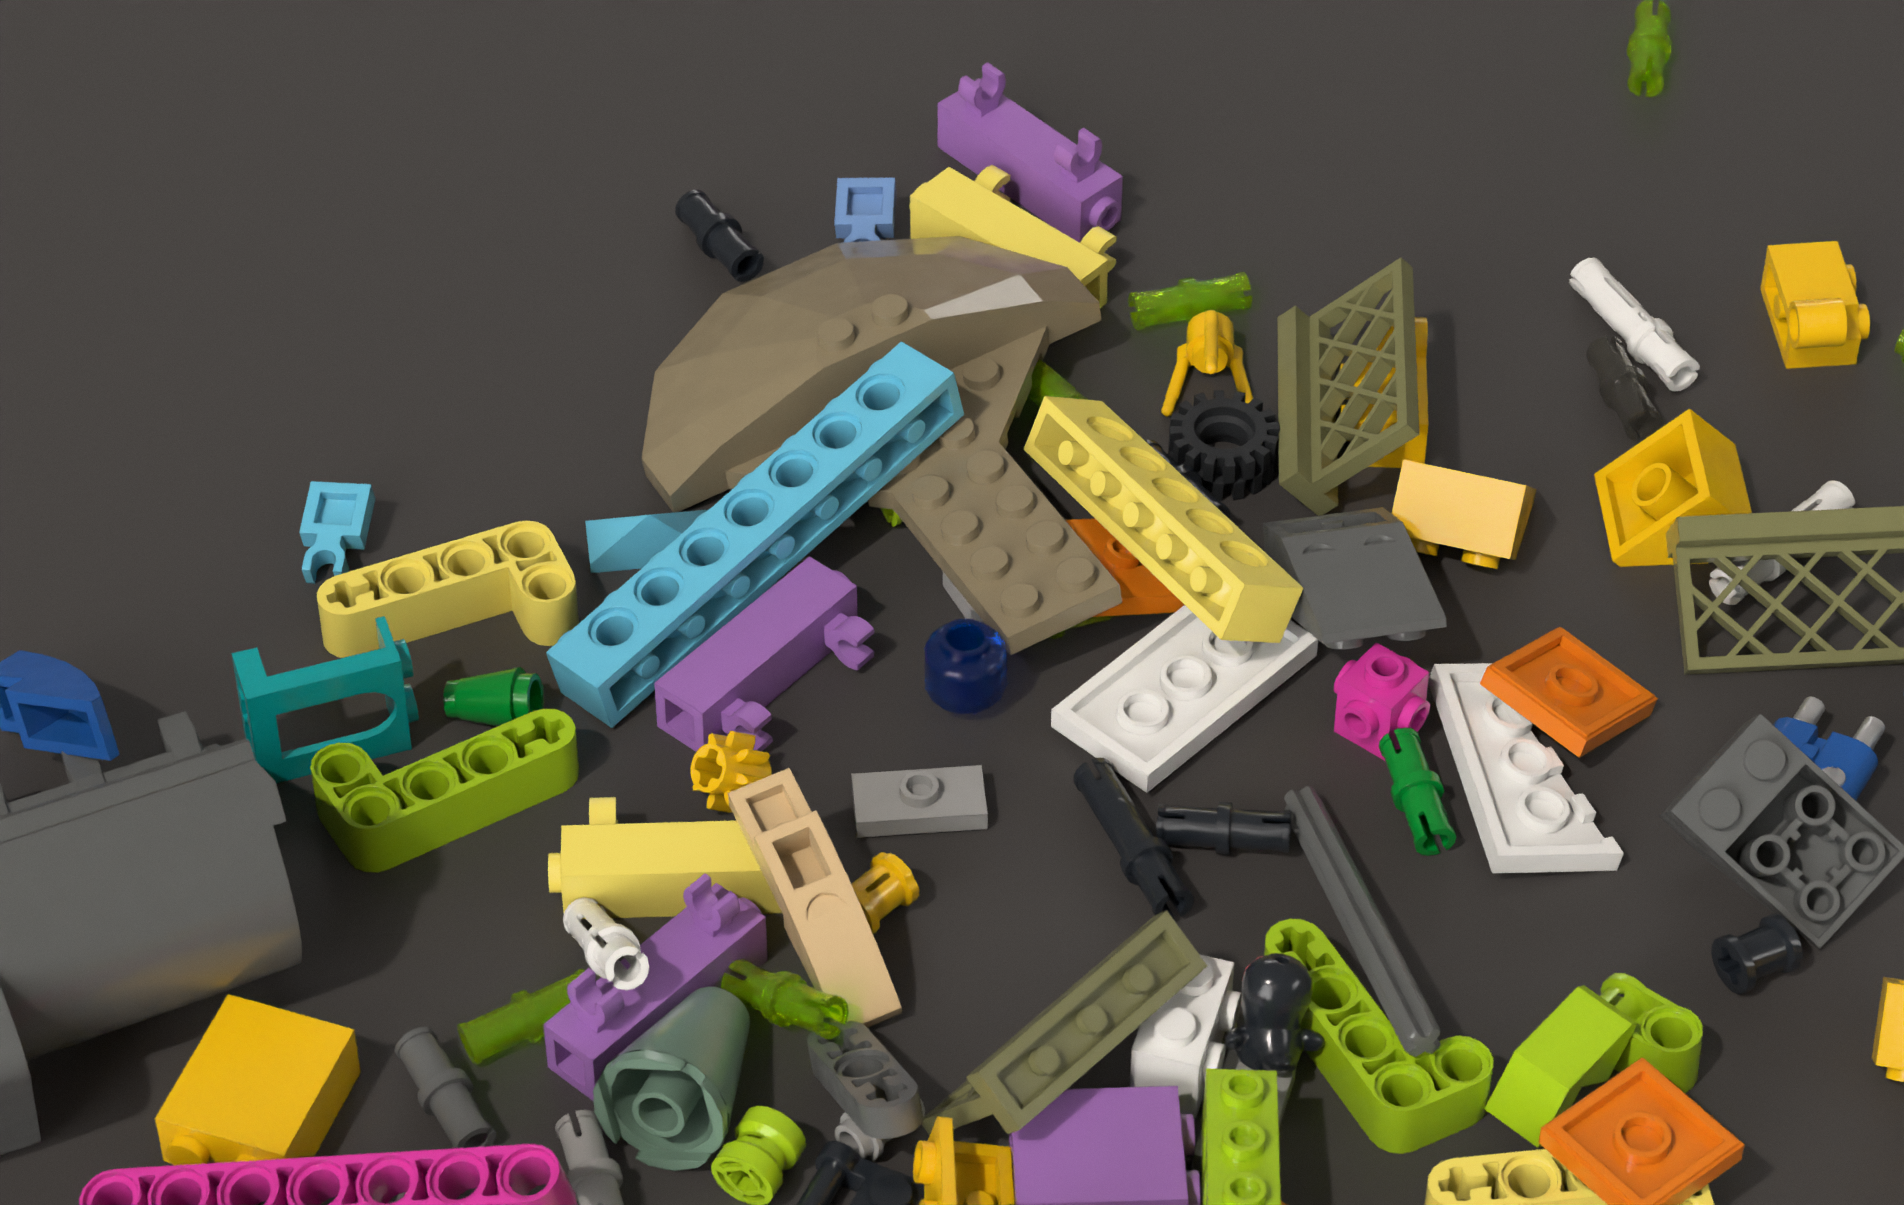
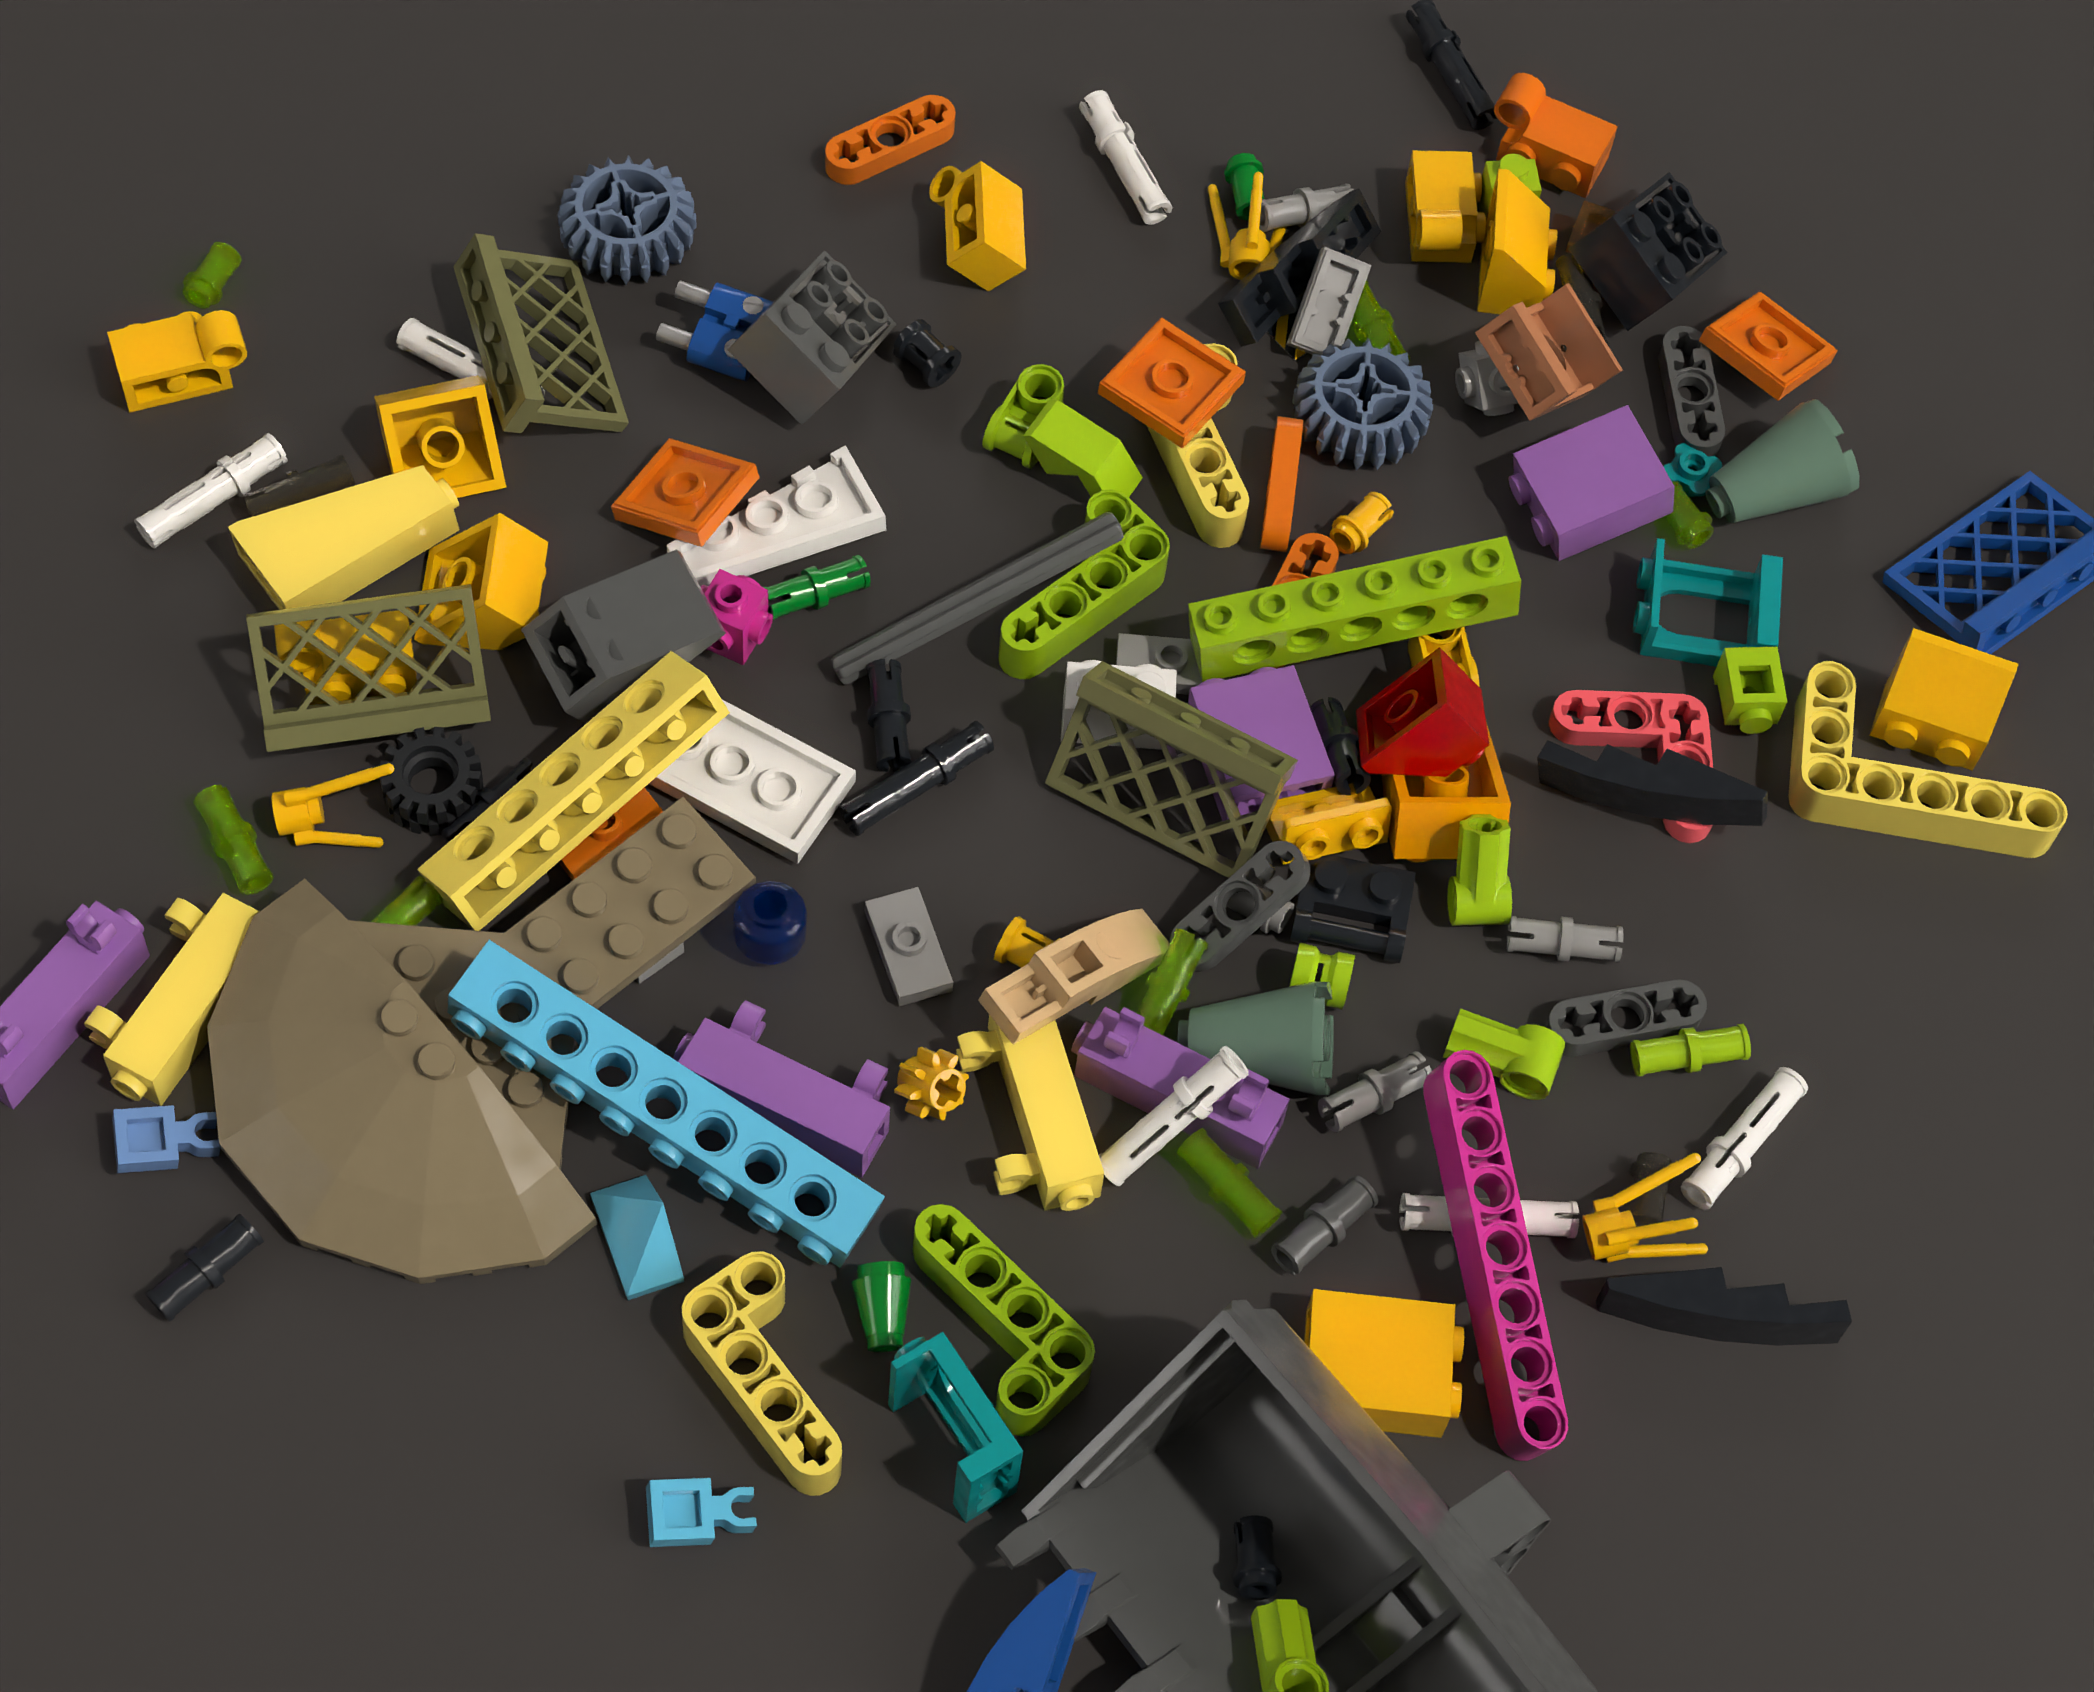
camera: 110 degrees left, 15 degrees up
(1273, 1007) = (1101, 634): black animal -> none
(1537, 402) = (345, 538): none -> light yellow slope

